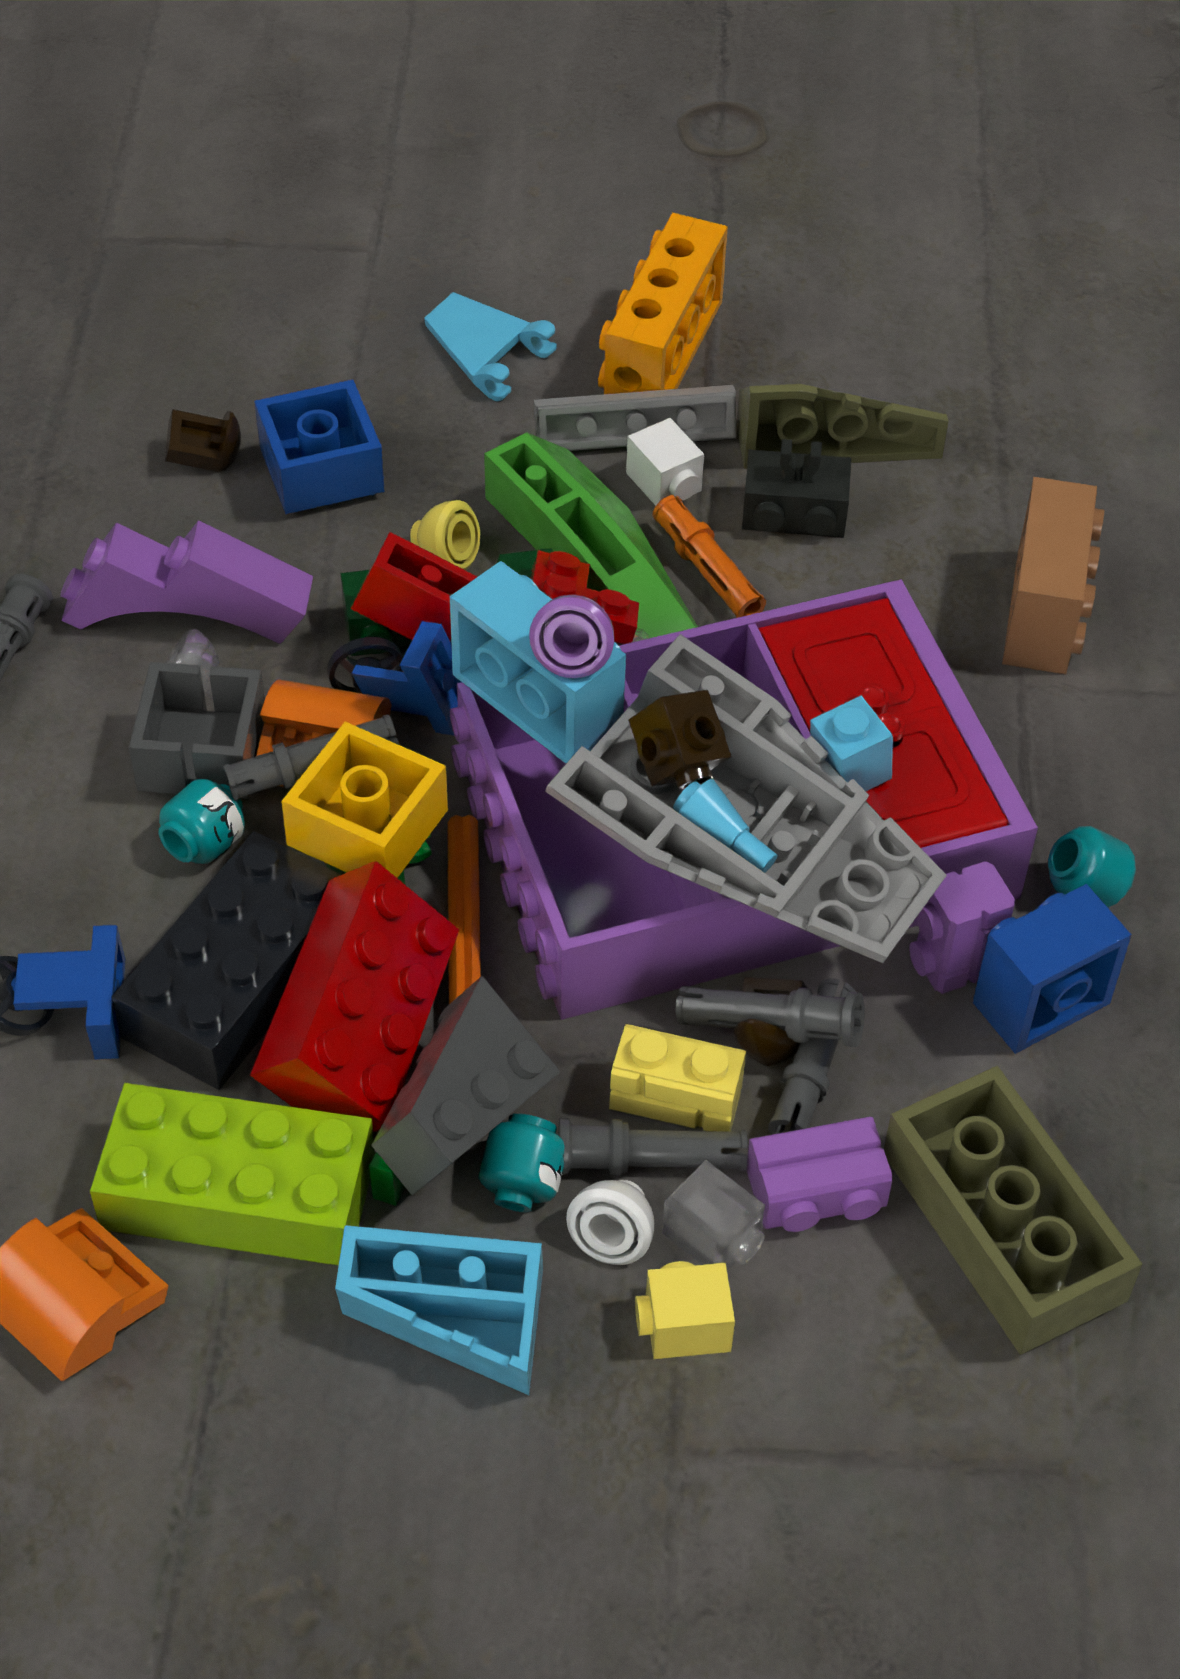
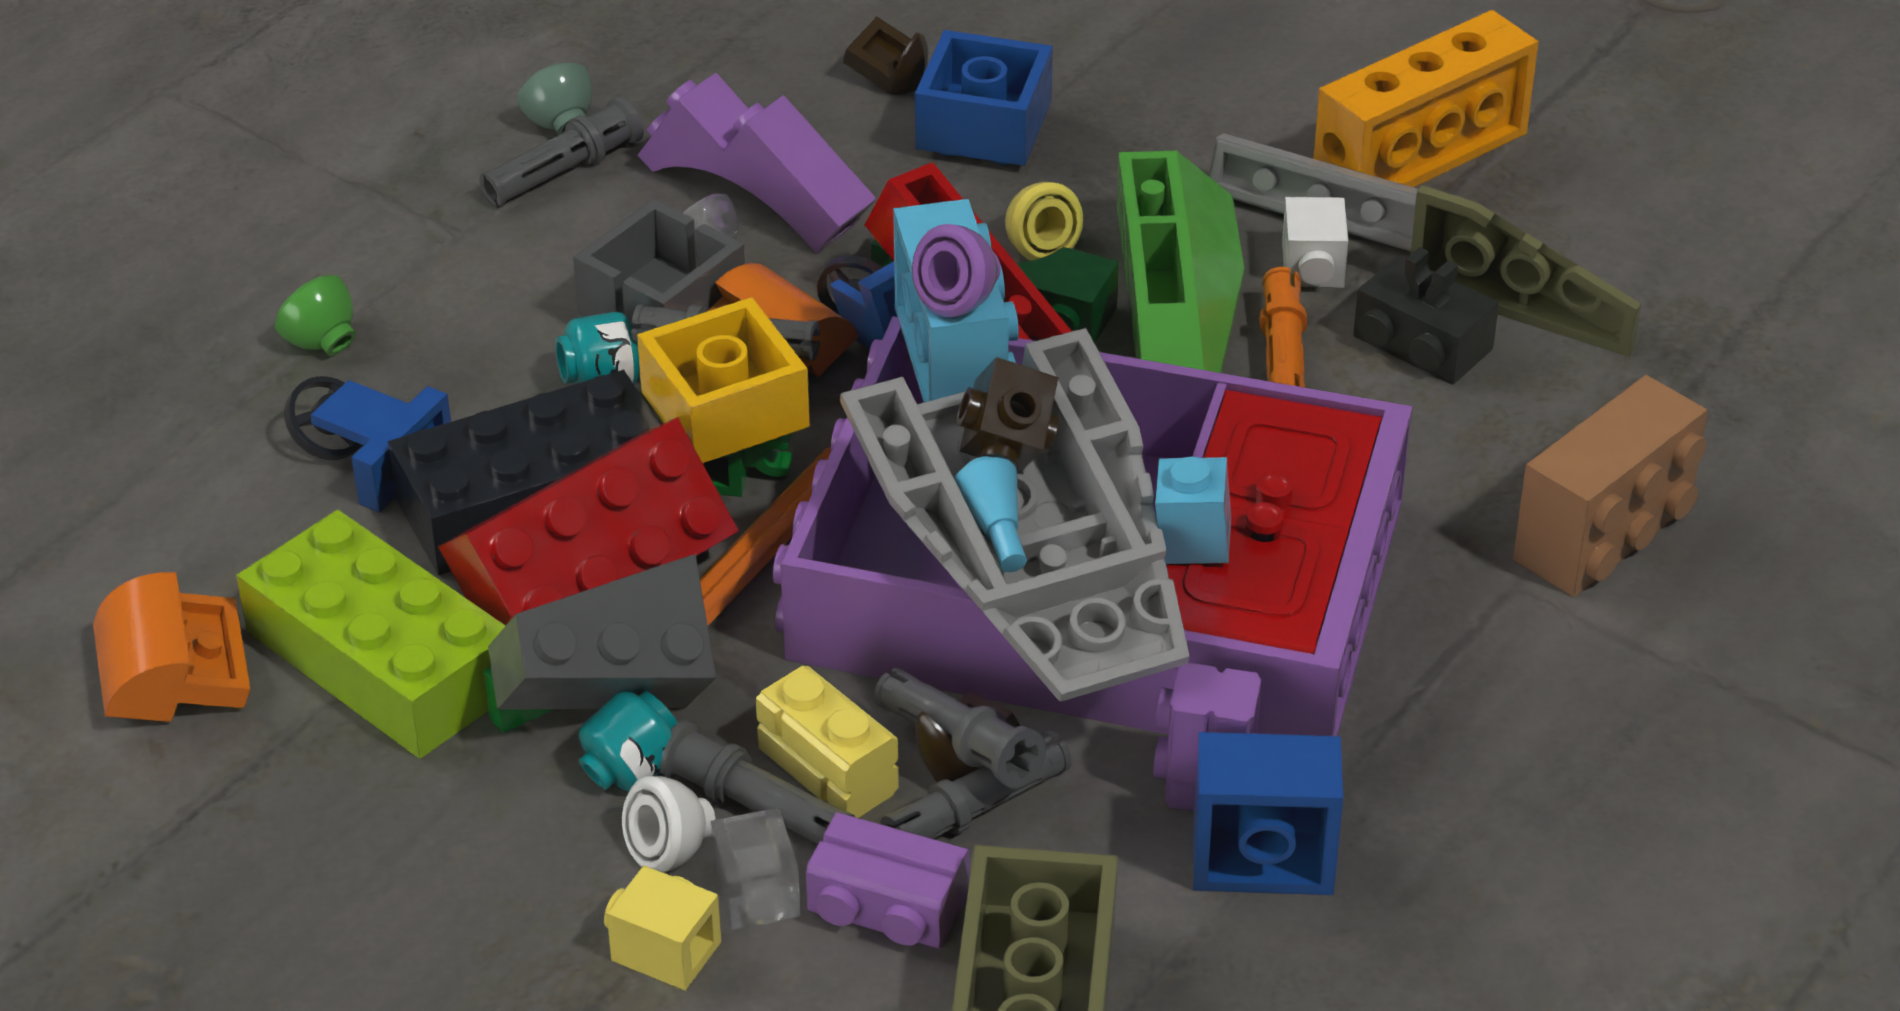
camera: 35 degrees right, 10 degrees down
(447, 1295) = (465, 805): medium azure wedge -> none
(481, 336) = (1245, 65): medium azure flag -> none
(564, 574) = (1084, 294): red plate -> none
(1092, 859) = (1408, 757): teal head -> none

